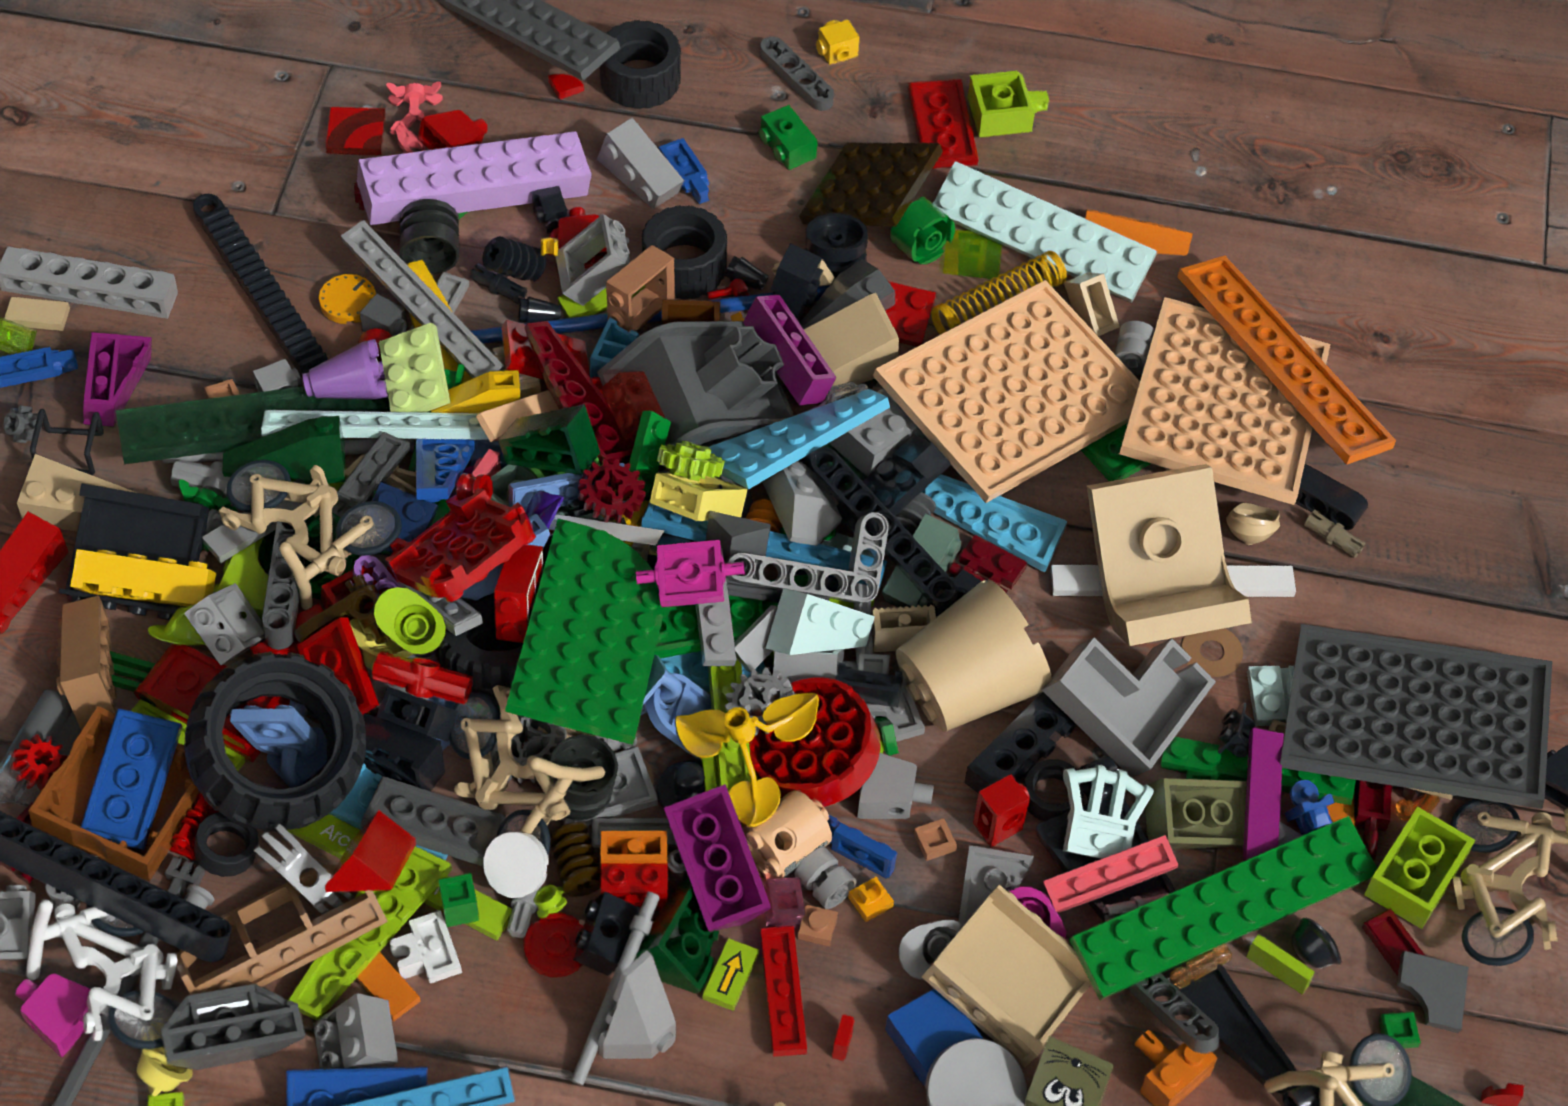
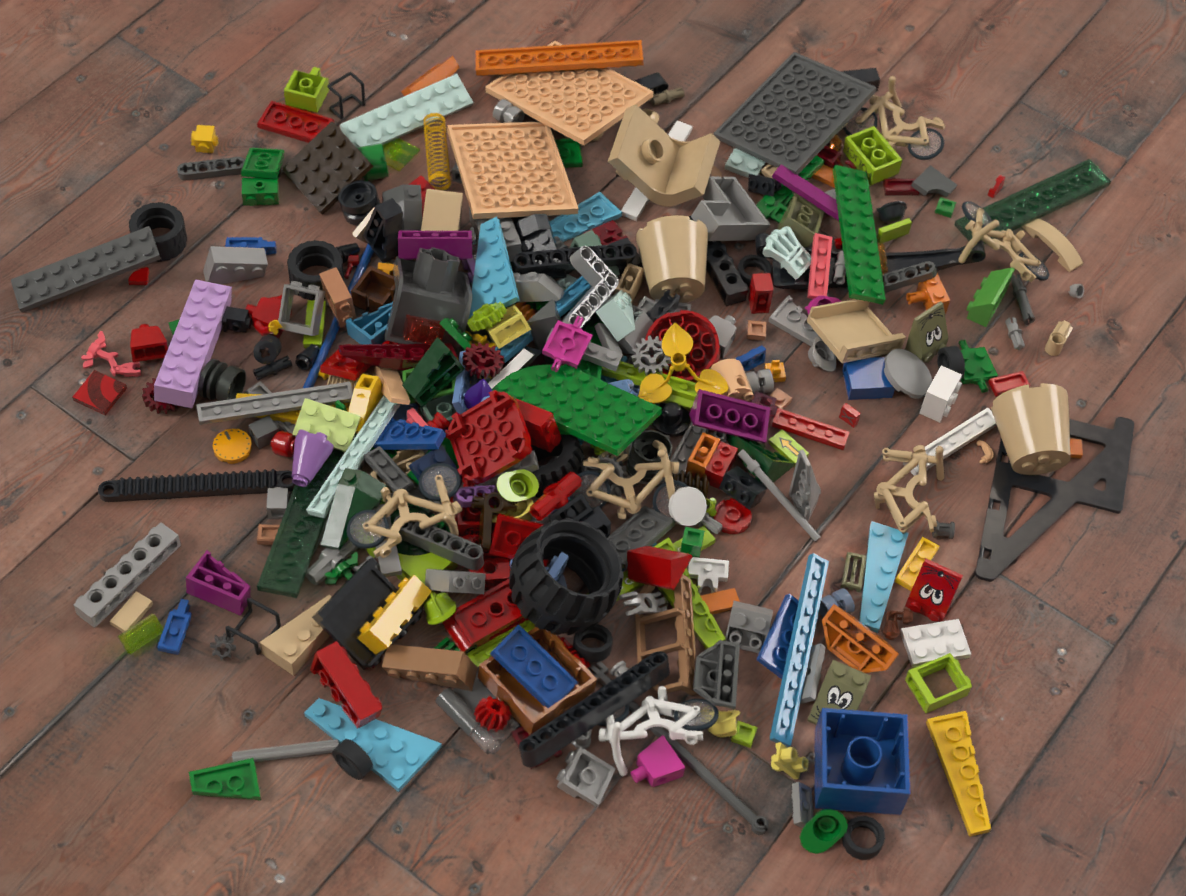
camera: 65 degrees left, 0 degrees up
(836, 116) = (263, 163): none -> green tile
(996, 152) = (340, 102): none -> black piece
(1092, 302) = (463, 113): tan slope -> none
(1309, 811) = (820, 177): blue hips -> none

